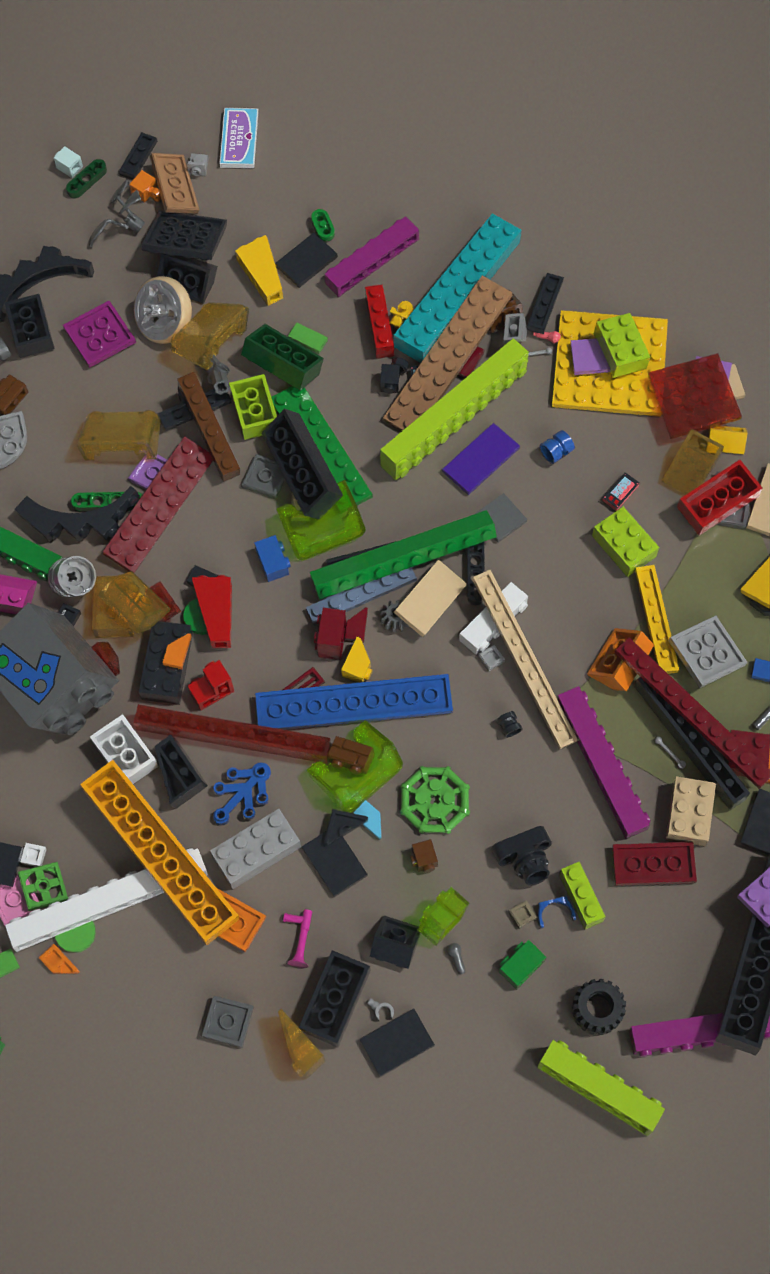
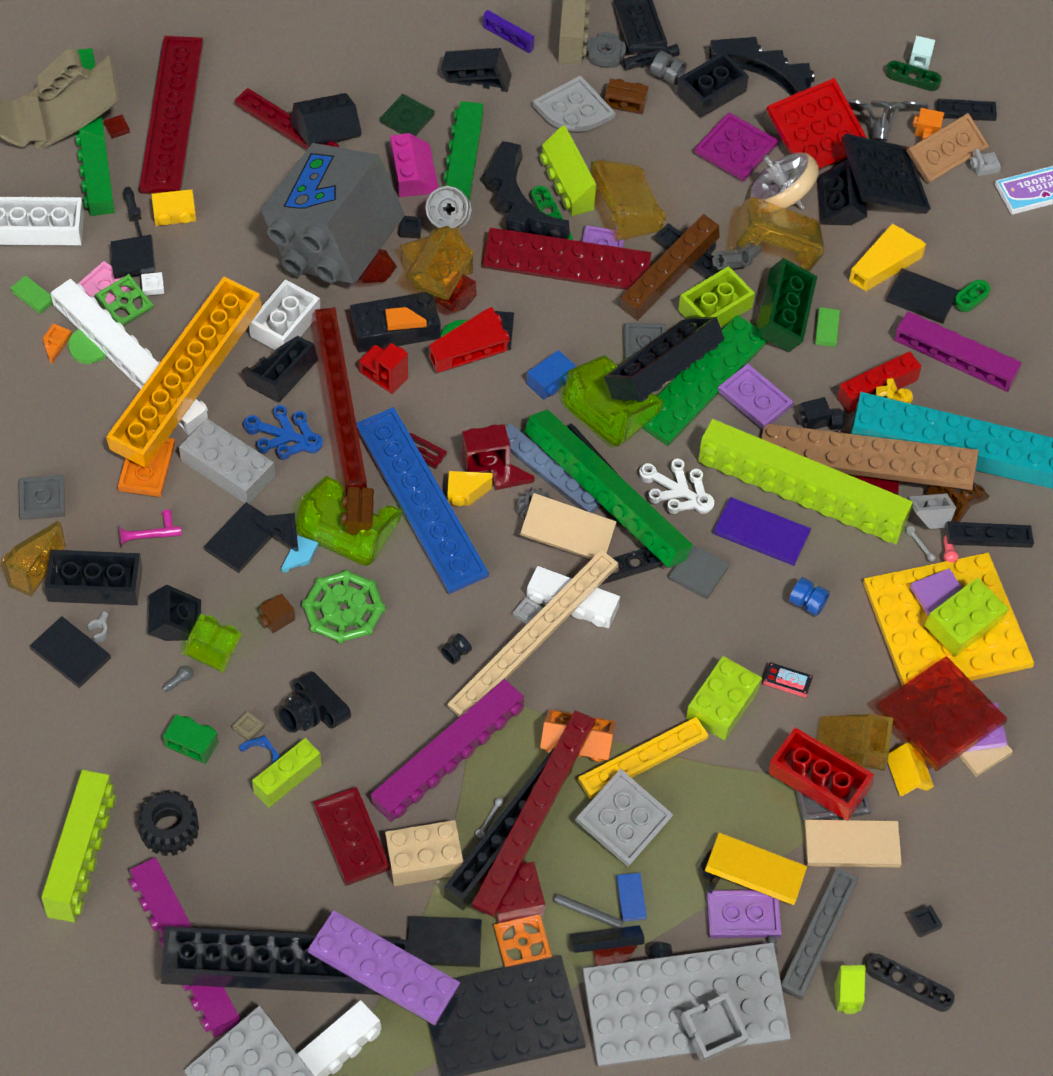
camera: 65 degrees right, 10 degrees down
(71, 468) = (568, 172): none -> lime slope
(111, 263) = (816, 122): none -> red plate
(354, 414) = (755, 396): none -> medium lavender plate
(419, 502) = (678, 489): none -> white plant

